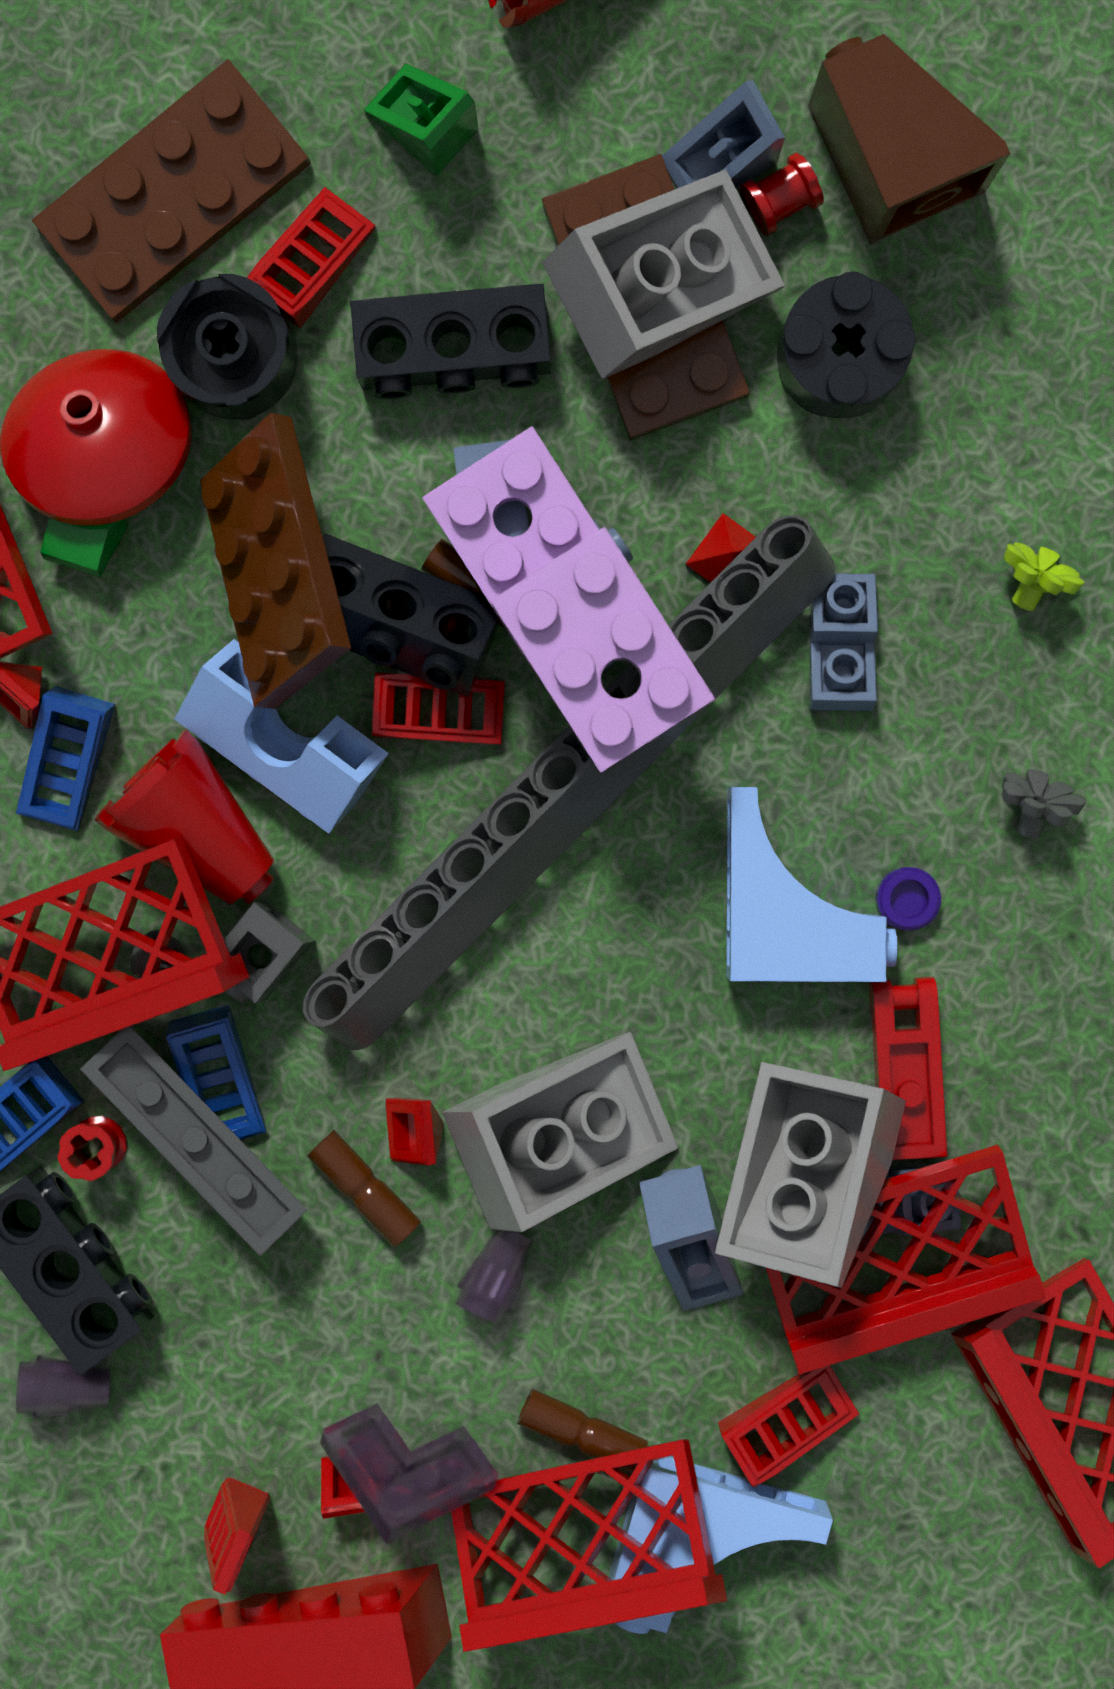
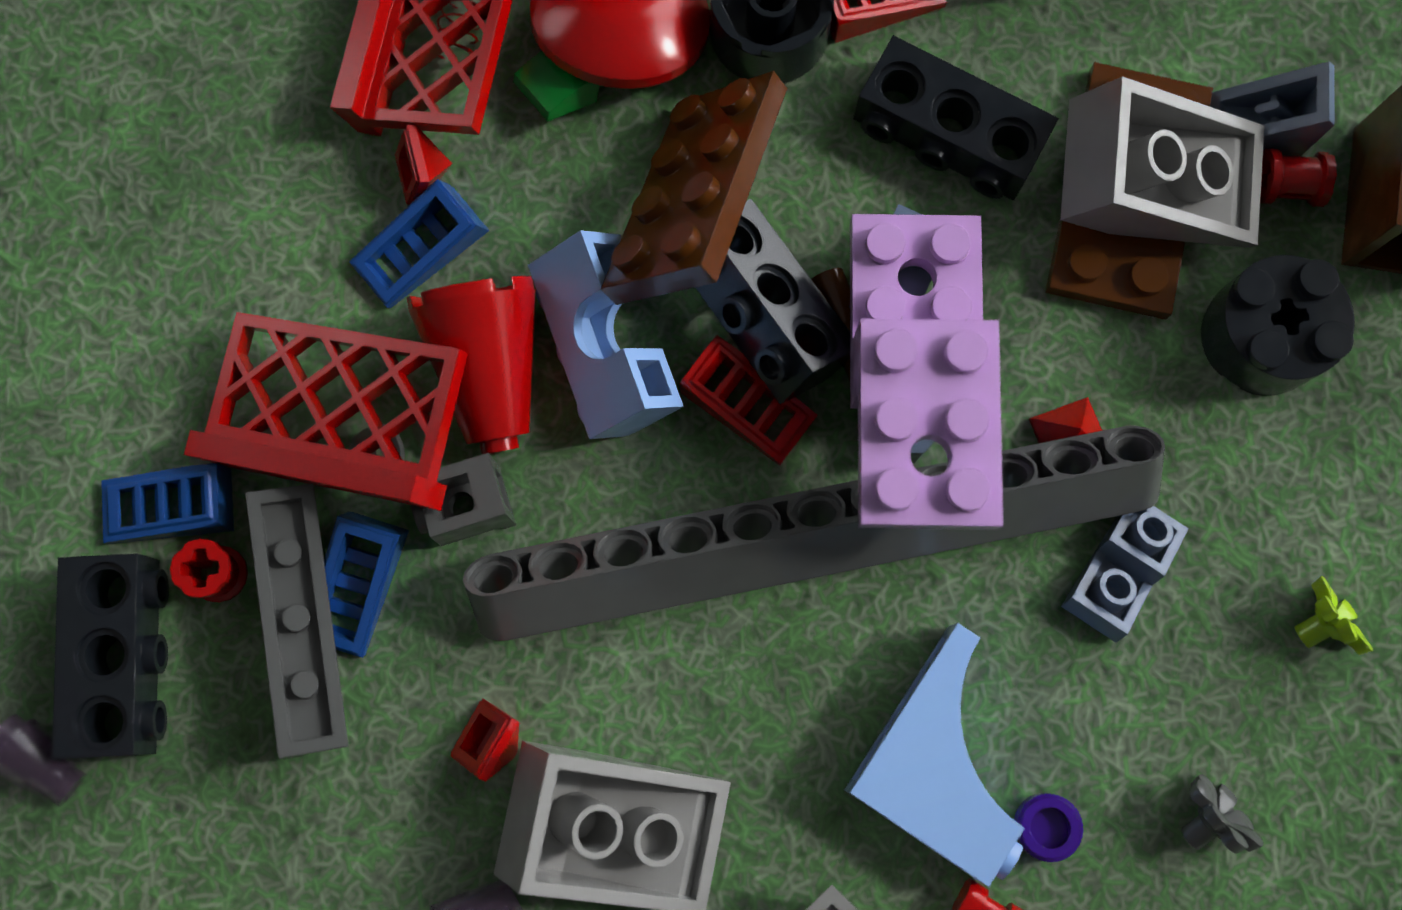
camera: 30 degrees right, 10 degrees down
(370, 1195) = (411, 773): reddish brown piece -> none

